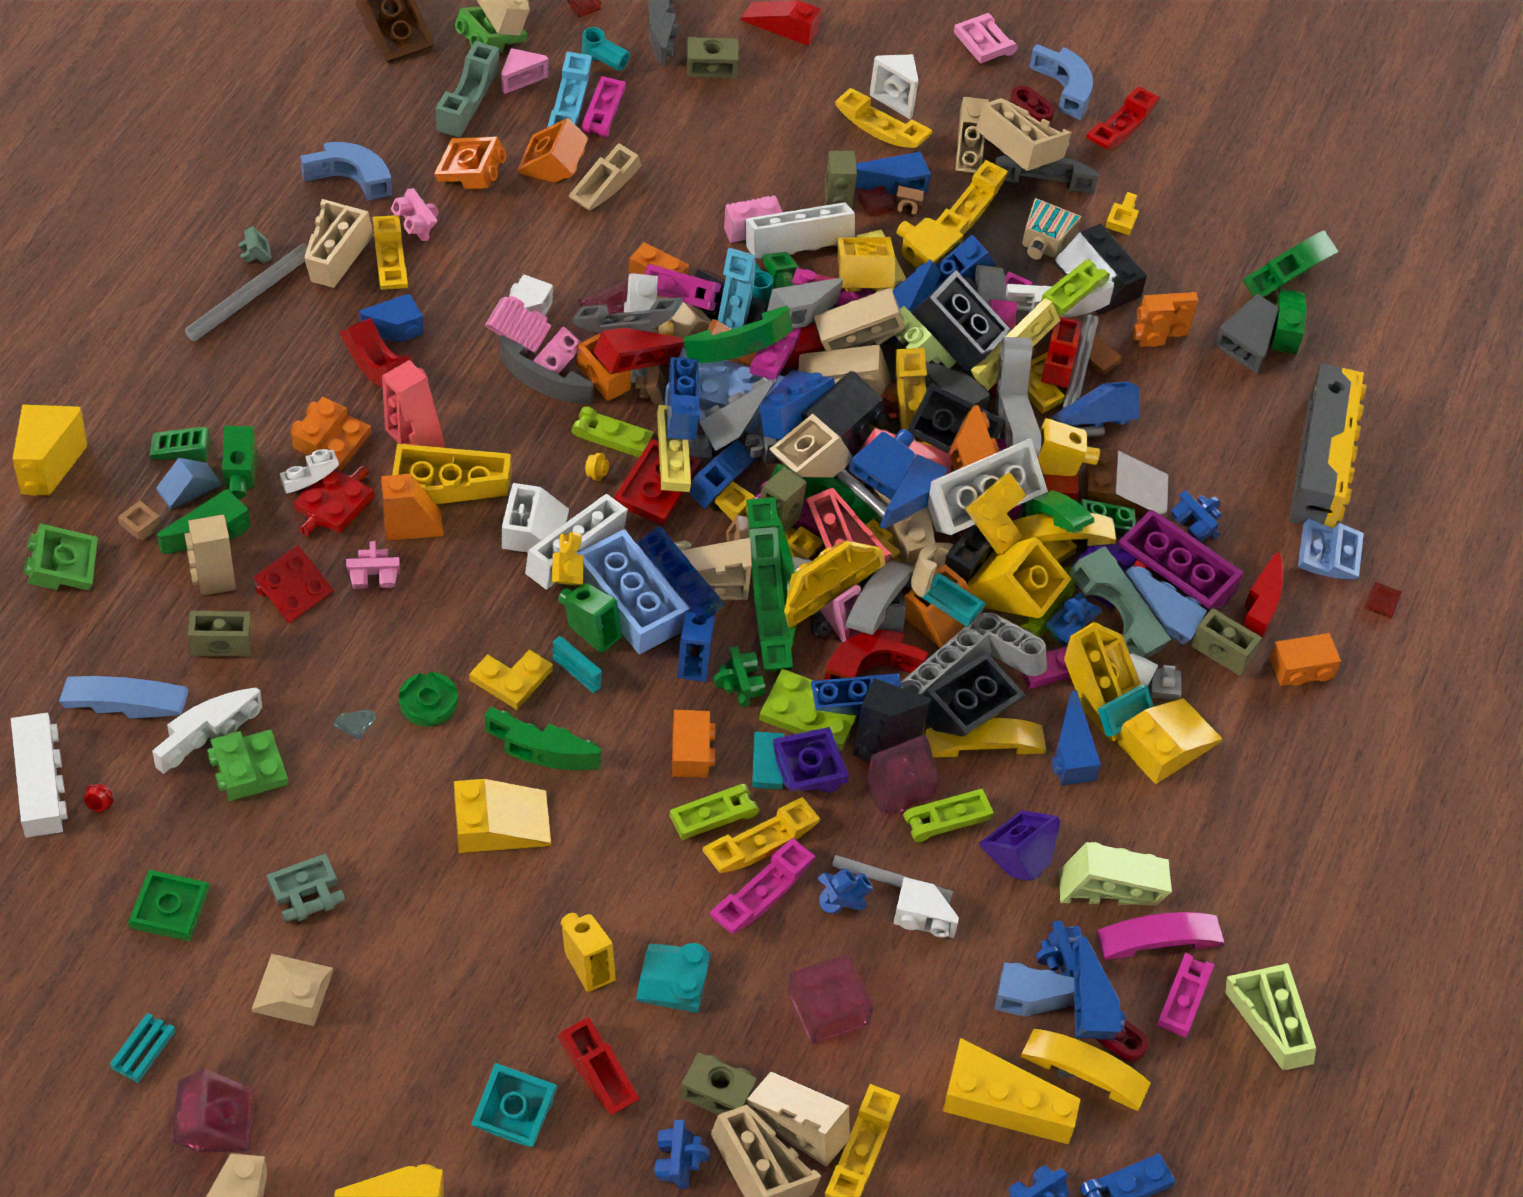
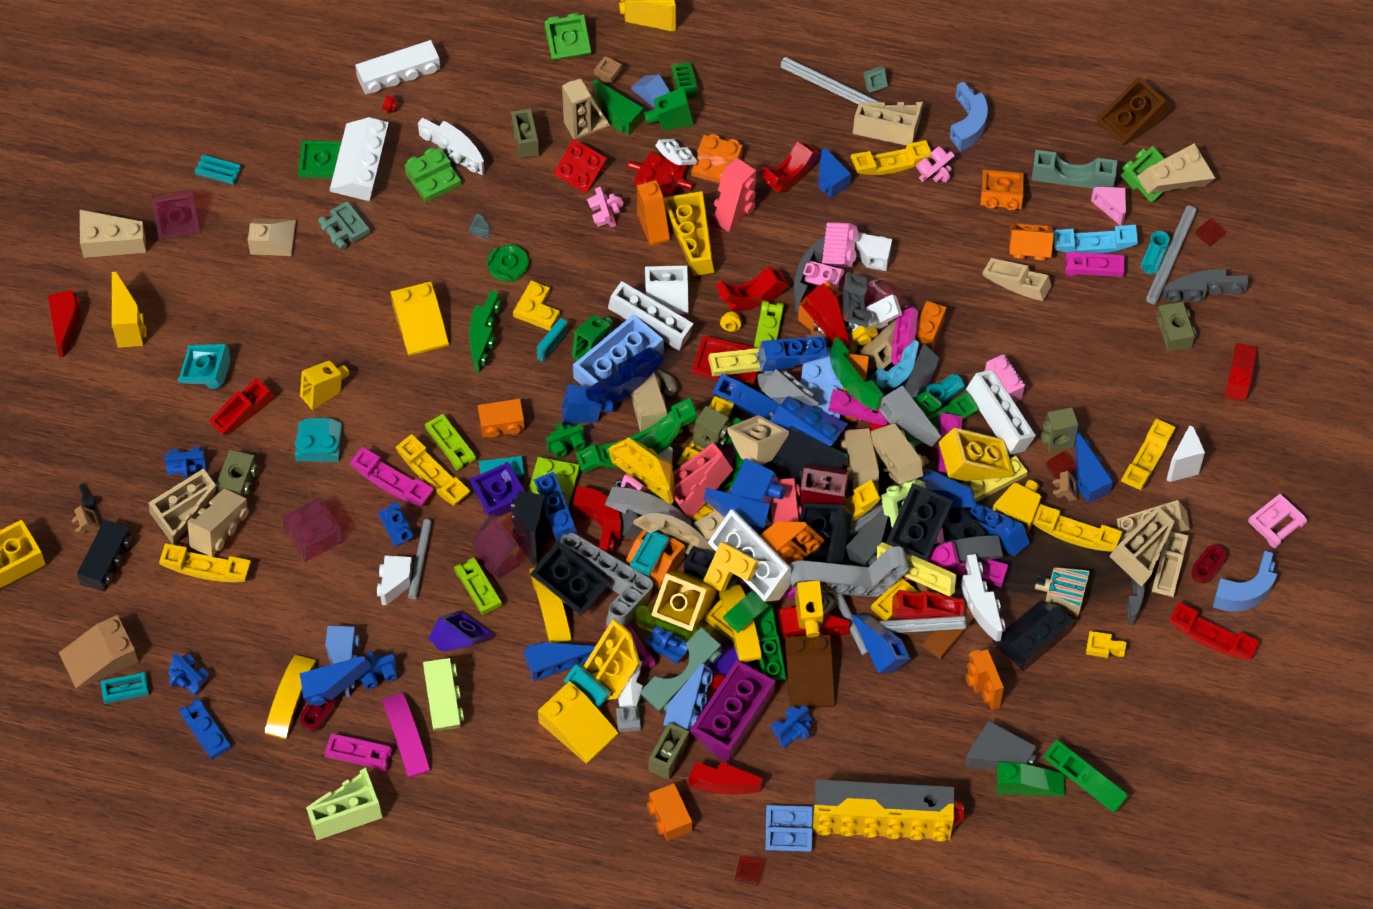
camera: 85 degrees right, 5 degrees up
(128, 695) = (466, 96): medium blue slope -> none
(194, 845) = (359, 158): none -> white slope
(557, 429) = (752, 293): none -> red arch
(567, 565) = (616, 307): yellow plate -> none
(578, 25) = (1171, 255): none -> light grey axle
(893, 397) = (824, 485): none -> dark red slope
(1008, 1096) = (257, 637): yellow wedge -> none
(1076, 286) = (981, 598): lime plate -> none

